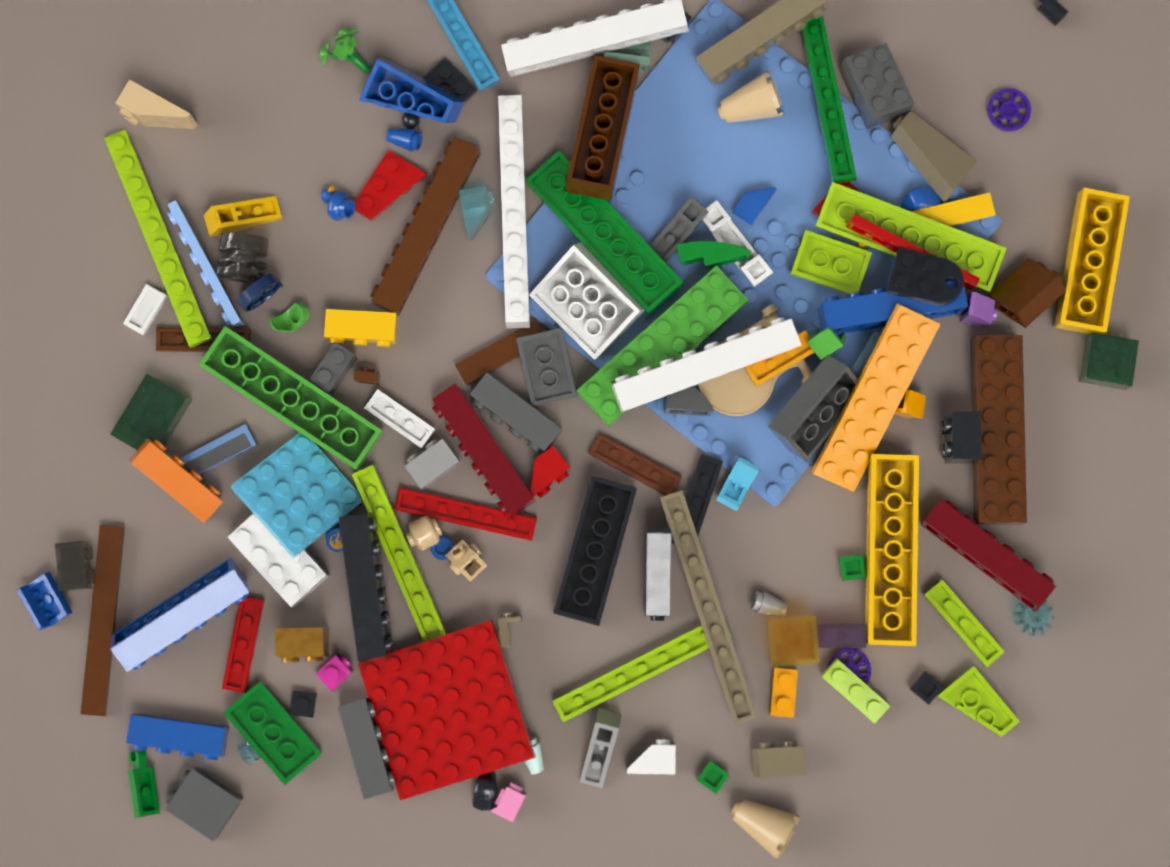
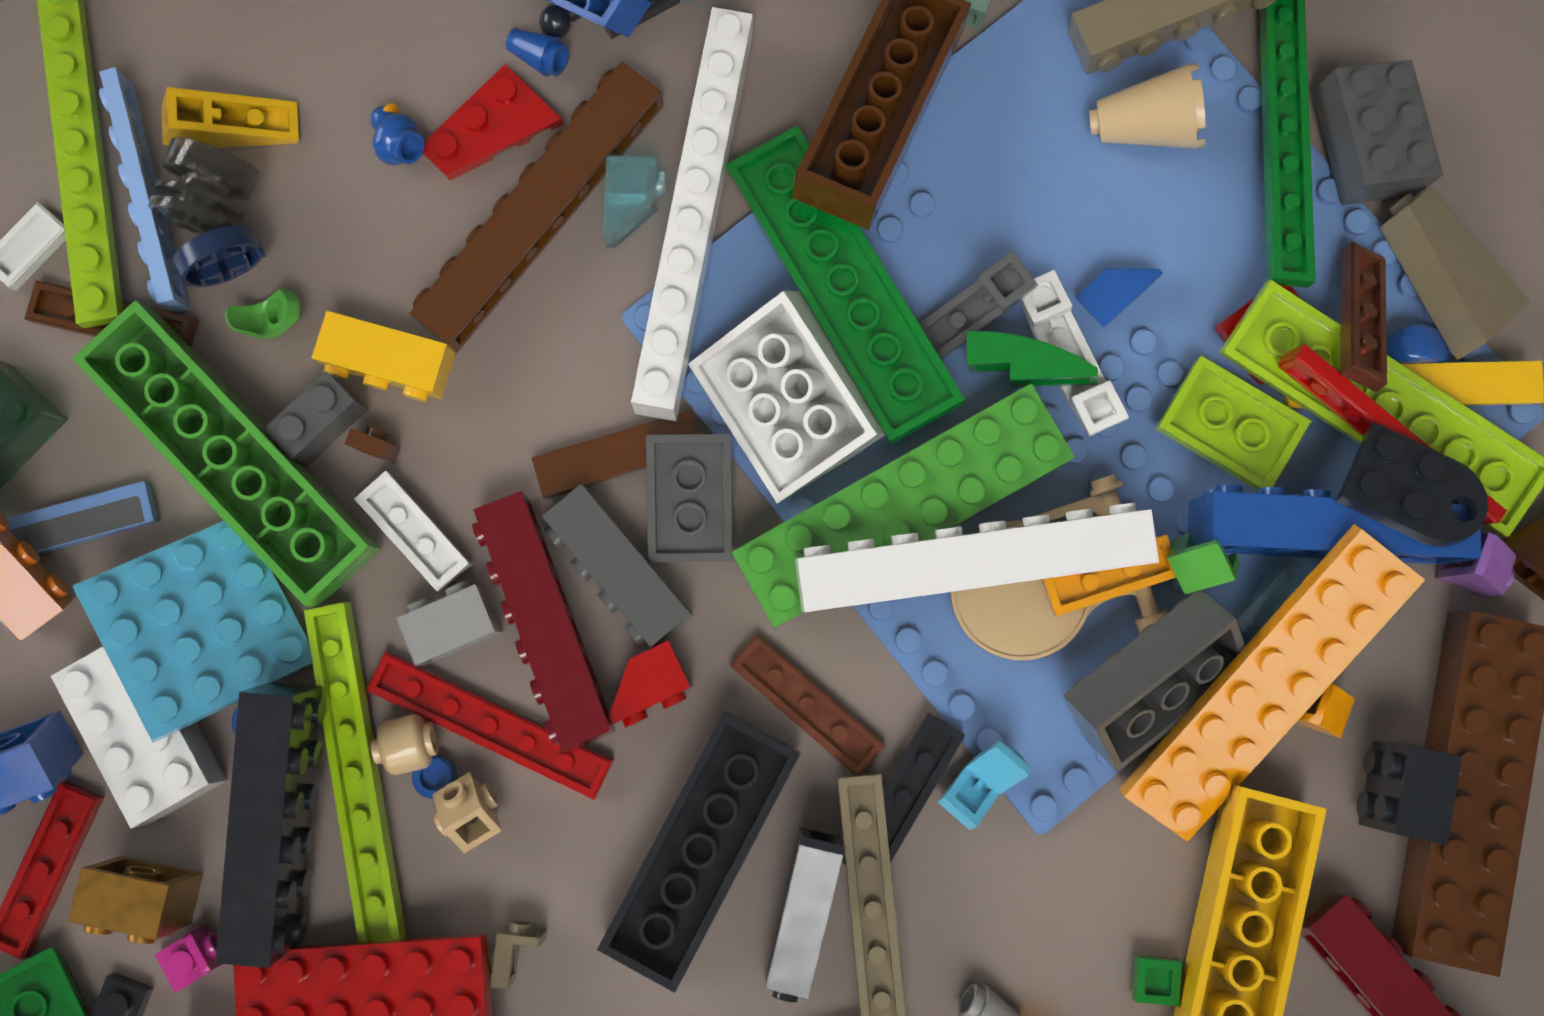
camera: 15 degrees right, 0 degrees up
(687, 402) = (926, 617): dark grey slope -> none
(886, 190) = (1363, 317): none -> copper tile

